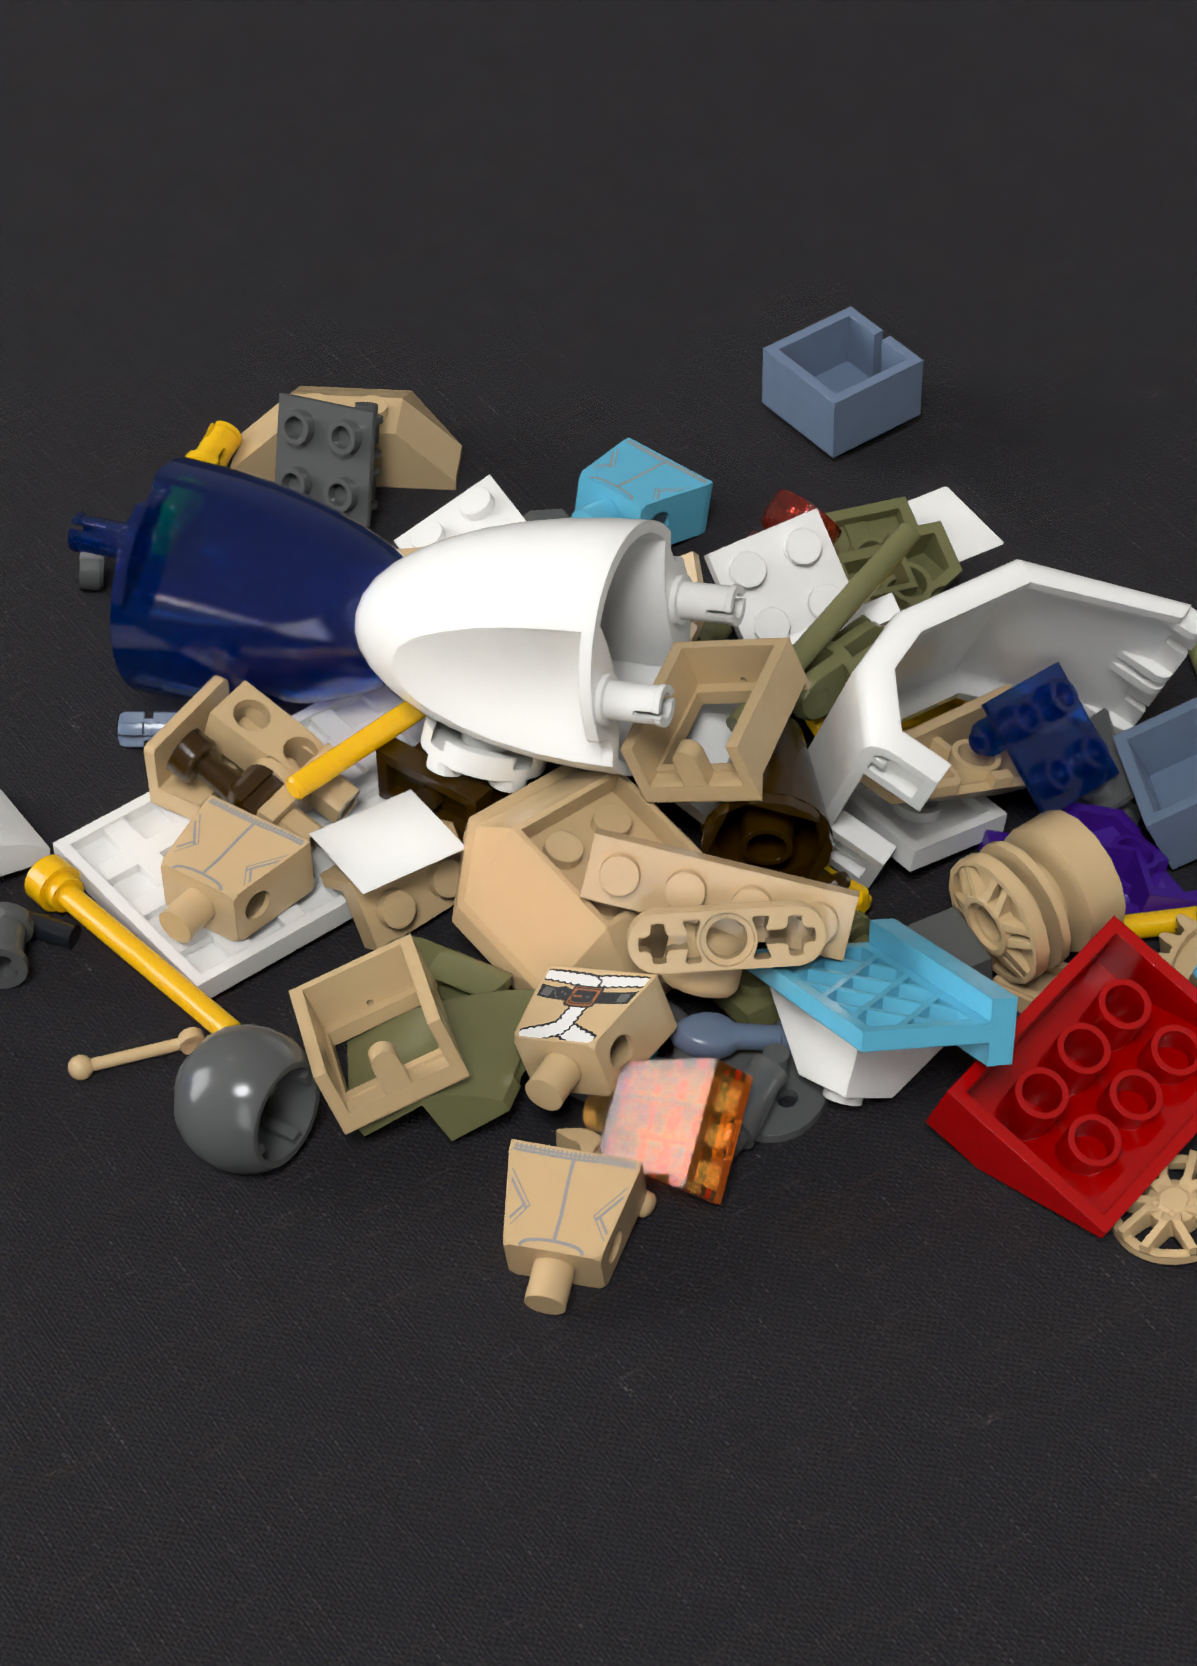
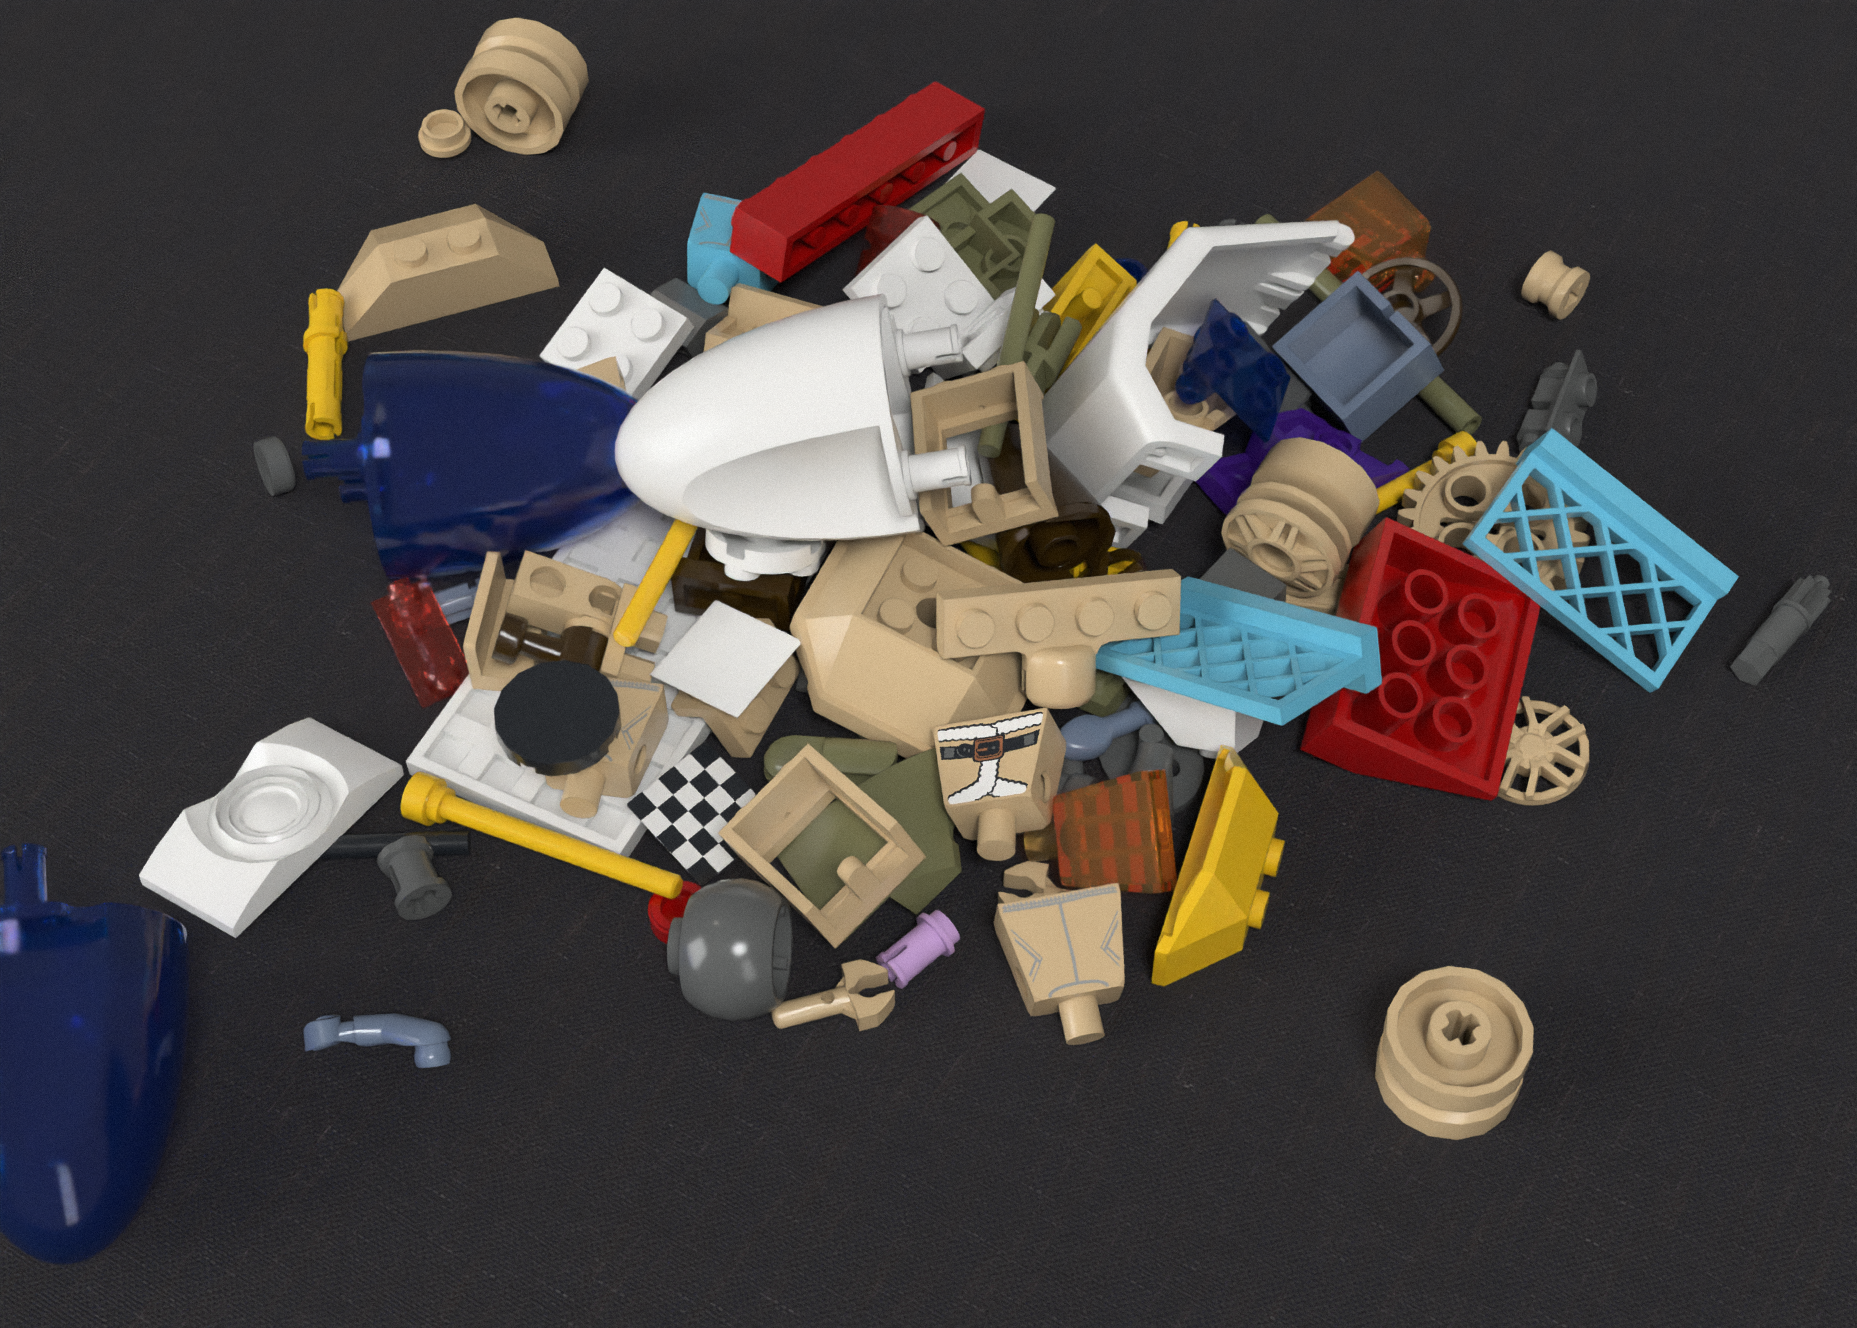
camera: 25 degrees left, 10 degrees up
(82, 1066) = (550, 966): tan hinge -> none
(126, 724) = (422, 640): none -> clear red hinge
(190, 834) = (557, 717): none -> black tile
(282, 961) = (691, 807): none -> sticker
(329, 452) = (446, 297): dark grey hinge -> none
(337, 1190) = (843, 999): none -> tan bar
(424, 325) = (444, 134): none -> tan plate
(432, 1168) = (919, 947): none -> lavender pin
(510, 296) = (521, 86): none -> tan wheel
(761, 1202) = (1220, 874): none -> yellow wedge
(776, 919) = (1116, 657): tan beam -> none
(819, 458) = (837, 189): none -> red brick
(842, 381) = (834, 78): sand blue piece -> none
(901, 1444) = (1453, 1052): none -> tan wheel

